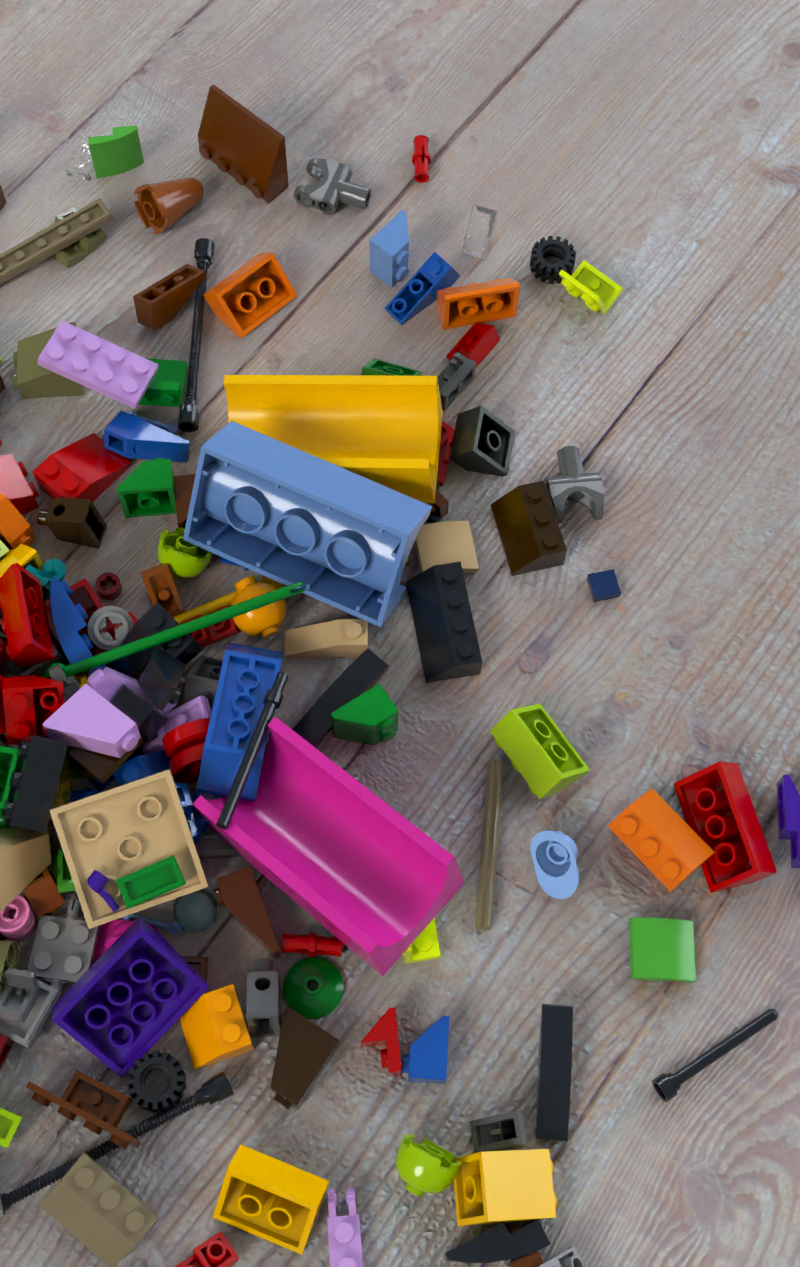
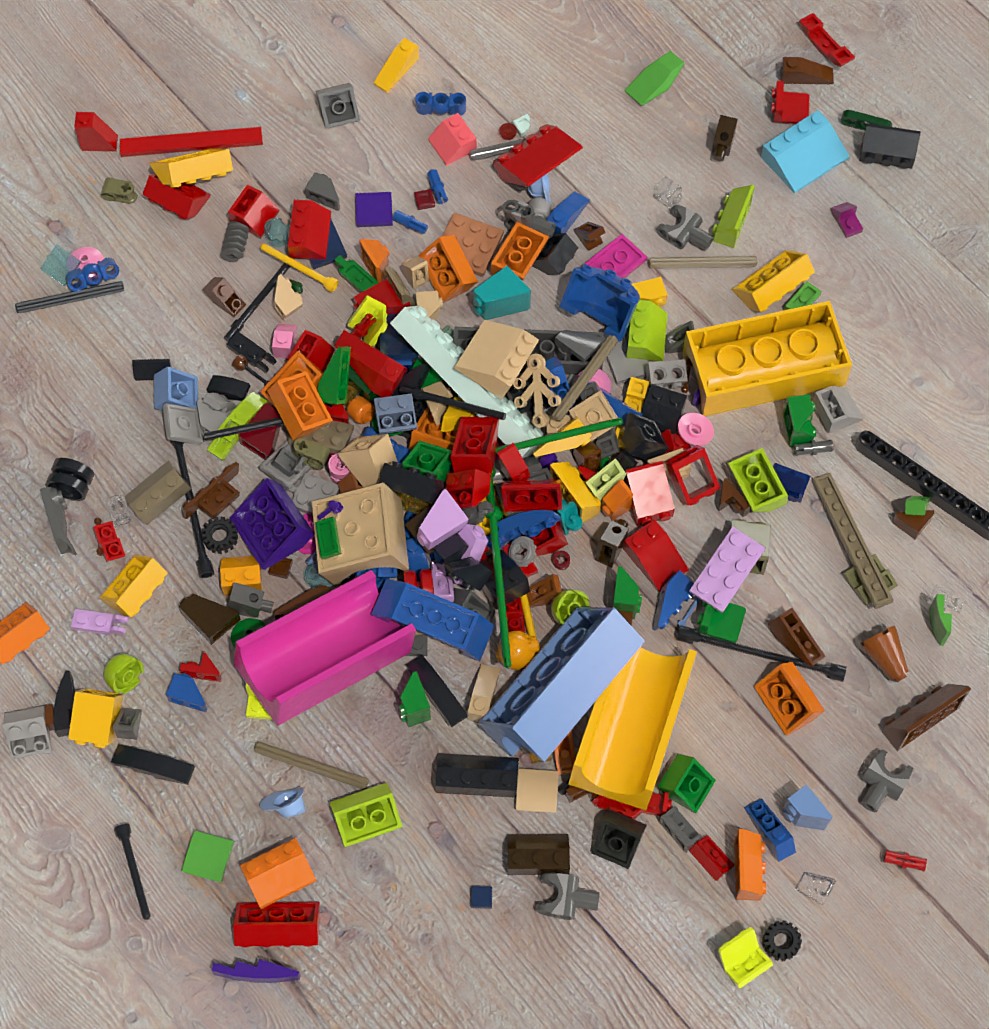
camera: 105 degrees right, 0 degrees up
(271, 702) = (431, 633): black bar -> none

